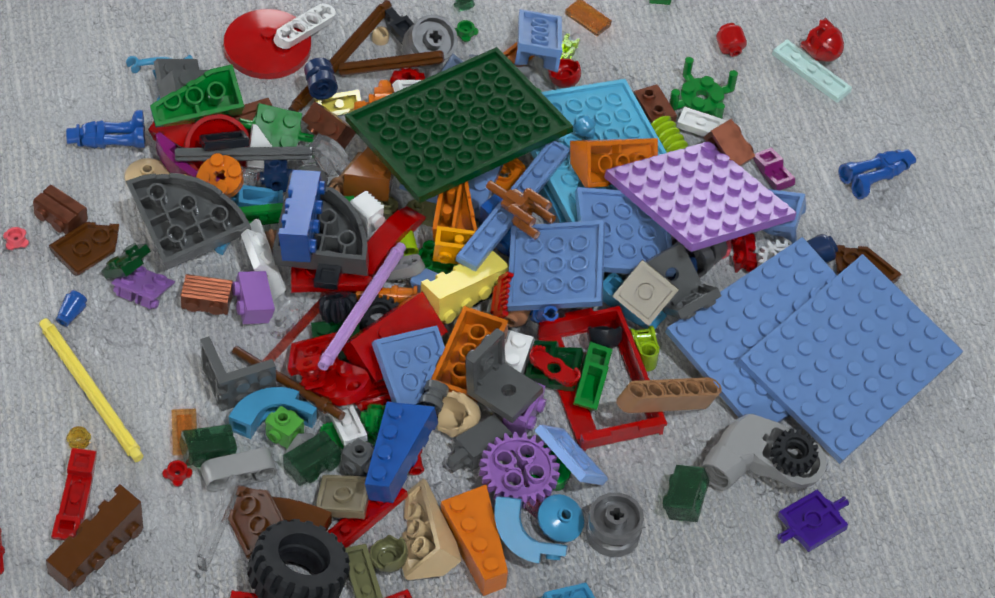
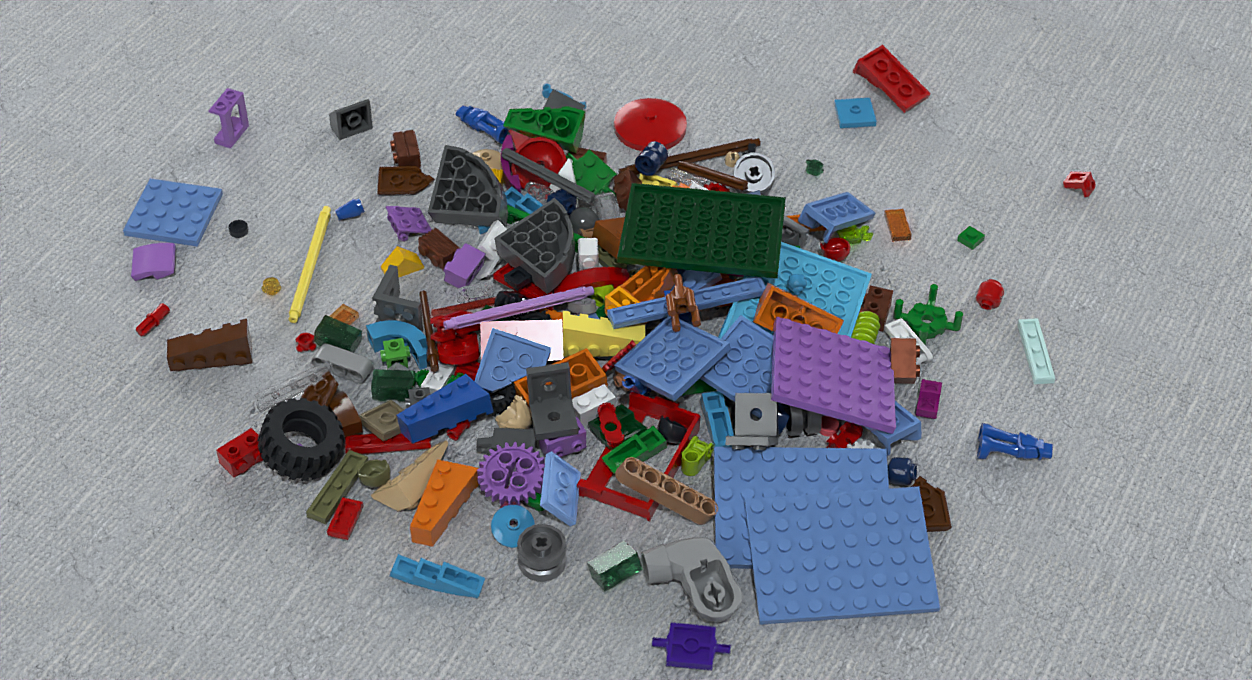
camera: 45 degrees right, 5 degrees down
(15, 233) = (364, 152): coral plate -> none
(75, 494) = (249, 304): red slope -> none
(127, 263) = (404, 200): dark green plate -> none
(182, 334) = (405, 261): none -> yellow slope
(224, 140) = (541, 159): black tile -> none
(229, 167) = (518, 172): orange plate -> none
(301, 23) = (660, 123): white beam -> none
(301, 215) = (526, 223): wedge -> none
(361, 82) = (683, 177): none -> clear plate
(434, 394) = (504, 391): dark grey wheel -> none
(466, 30) = (795, 186): green plate -> none
(515, 537) = (464, 514): dark azure arch -> none
(645, 292) = (723, 414): plate -> none
(789, 463) = (711, 596): black tyre -> none
(824, 42) = (1060, 335): red helmet -> none

